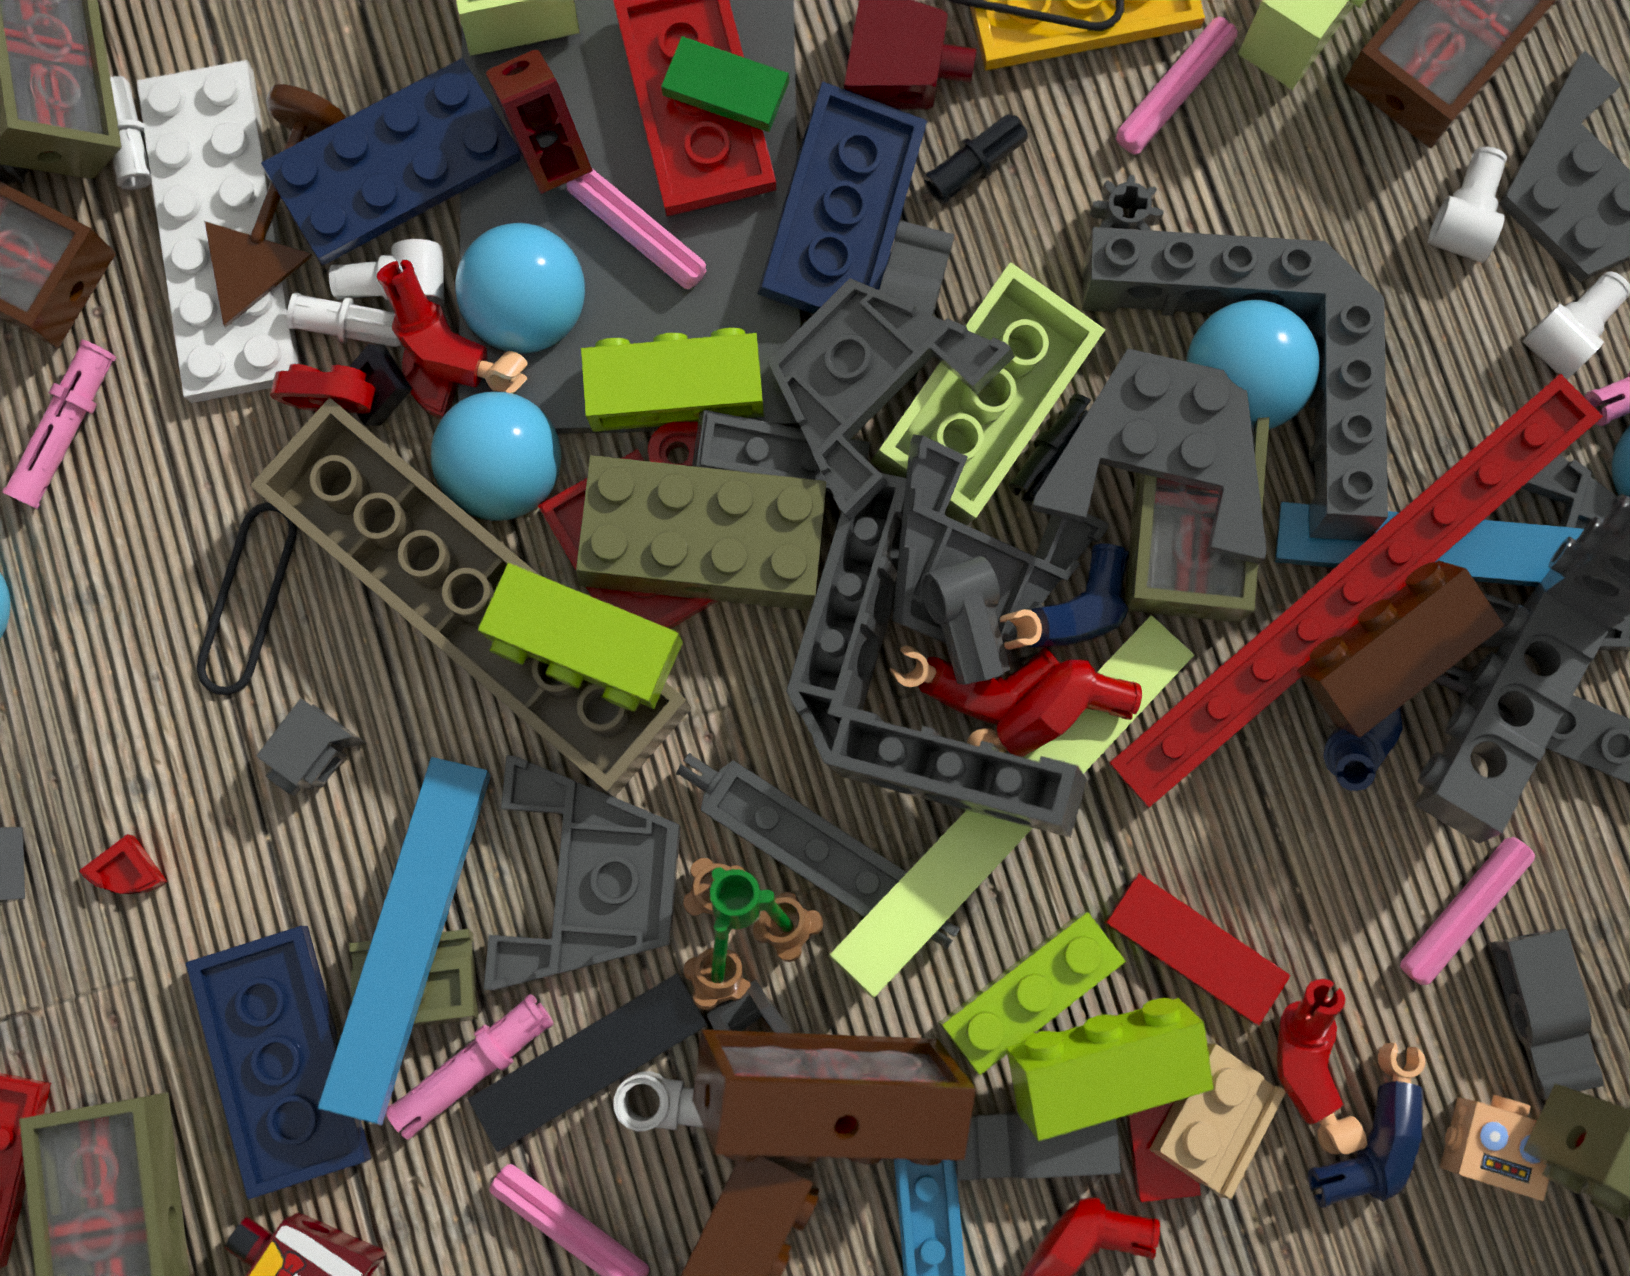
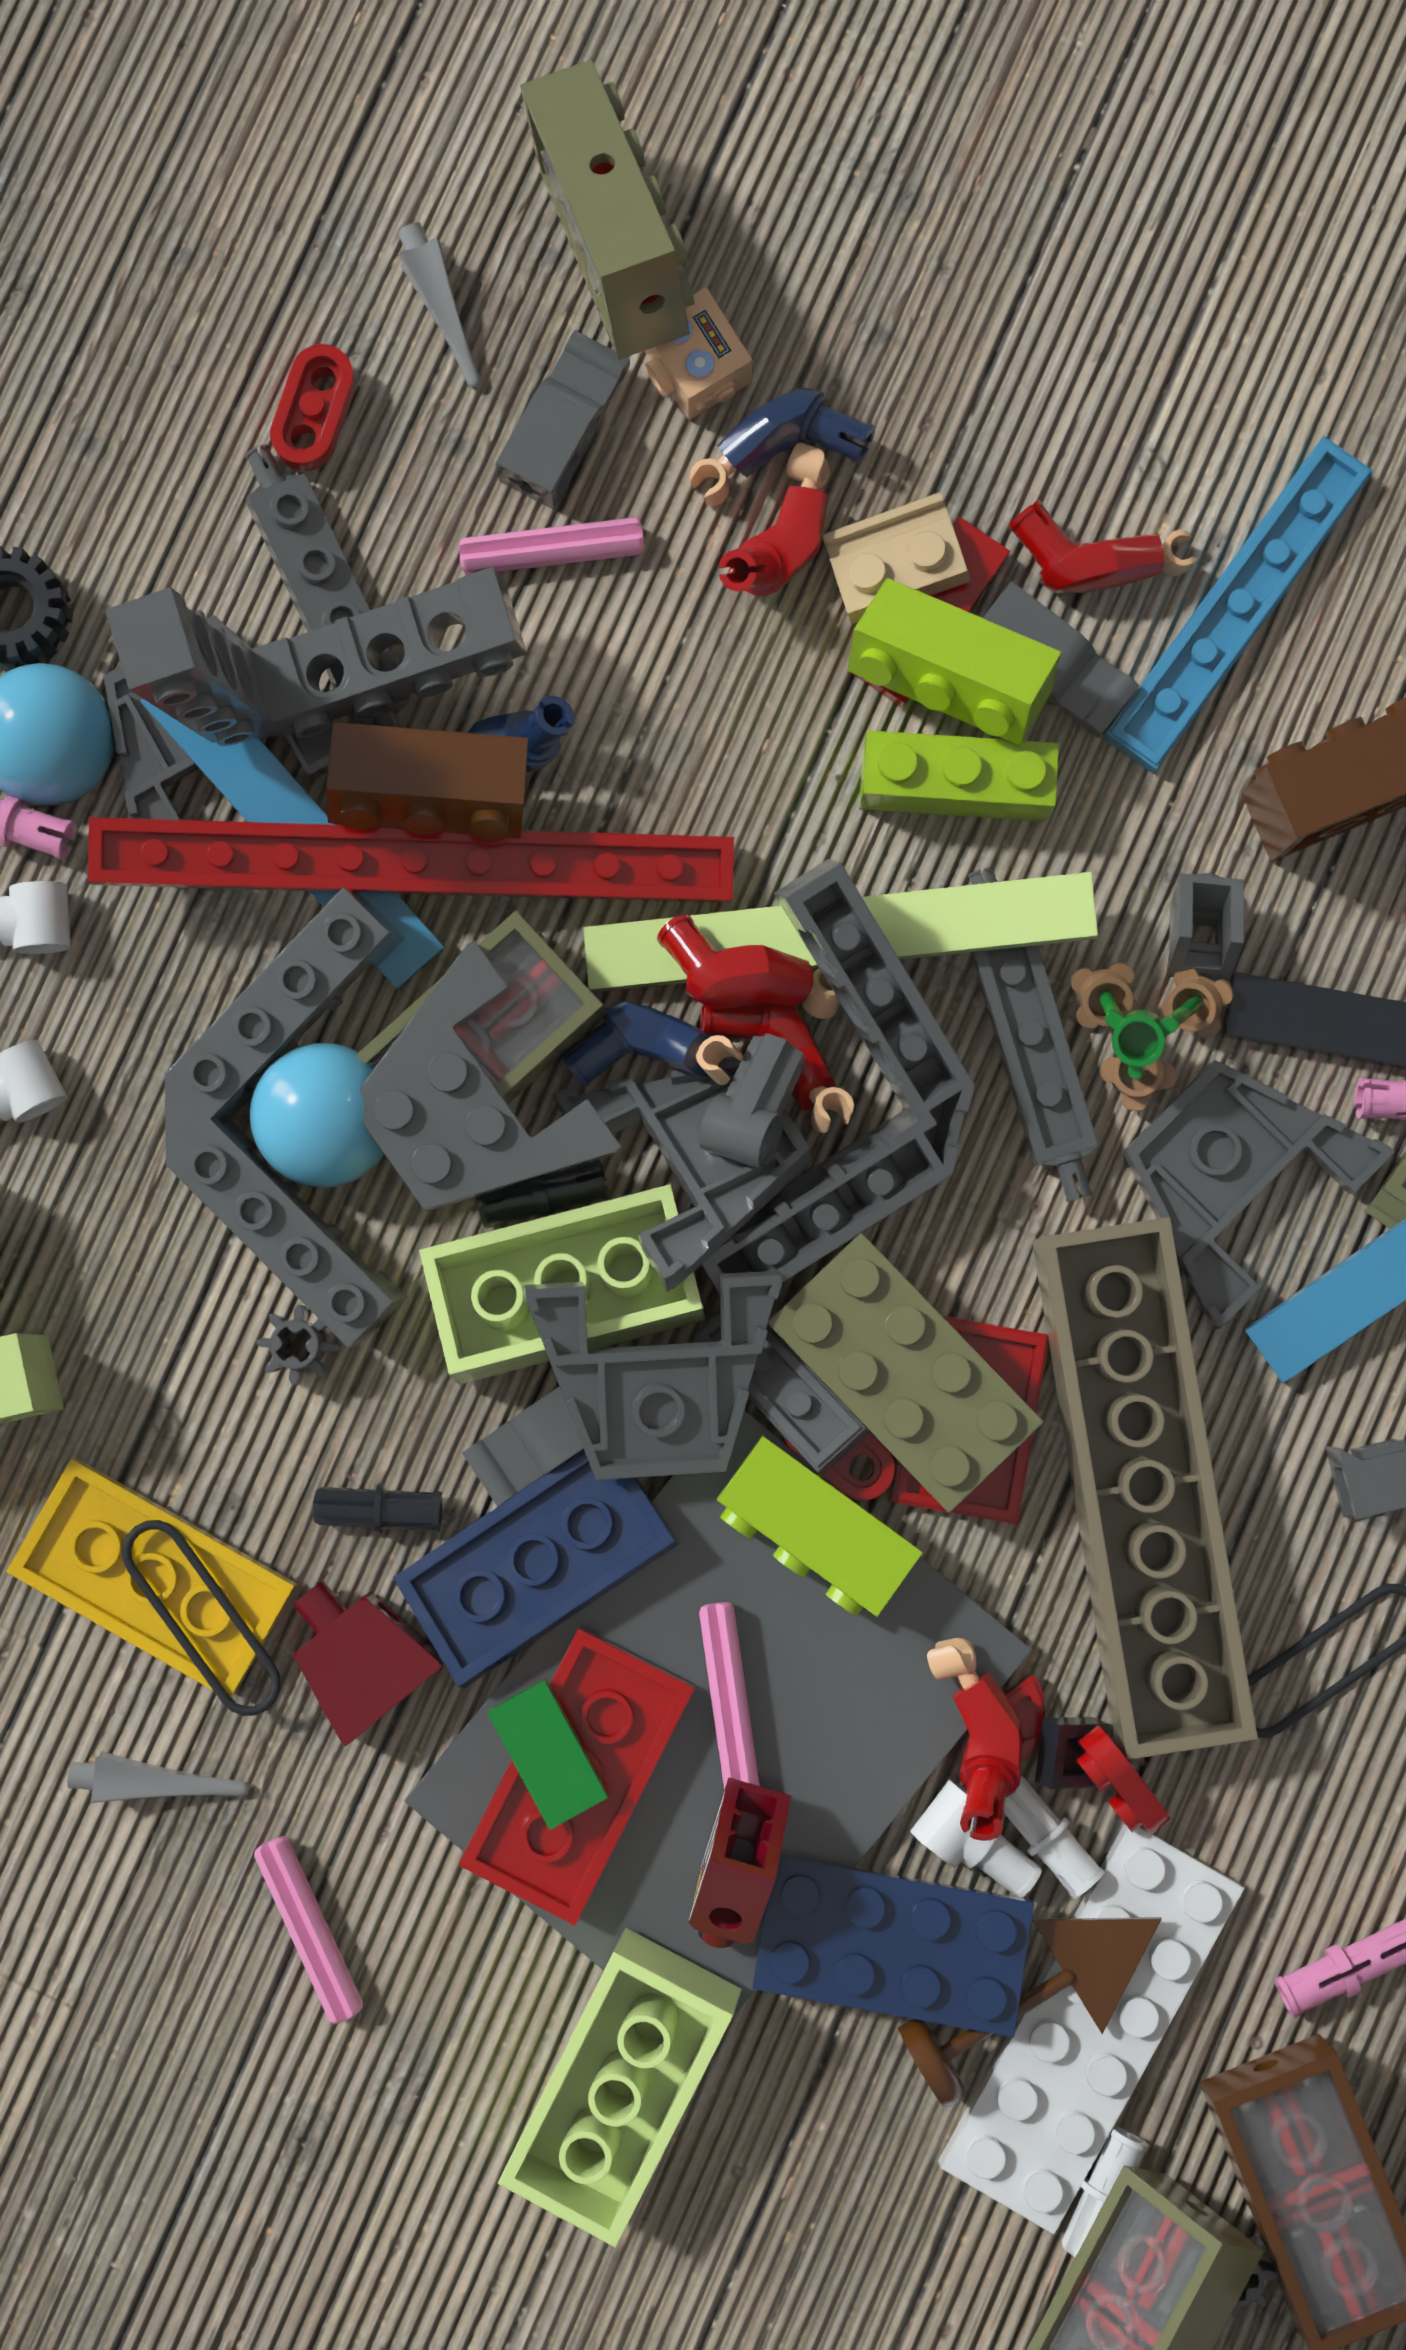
camera: 140 degrees left, 5 degrees up
(496, 455) = (1018, 1598): medium azure piece -> none
(520, 288) = (877, 1728): medium azure piece -> none
(579, 638) = (1092, 1356): lime brick -> none
(674, 1109) = (1315, 928): white pin -> none
(831, 1097) = (1193, 822): reddish brown brick -> none
(1176, 85) = (146, 1423): bright pink axle -> none
(1197, 949) = (792, 700): red tile -> none

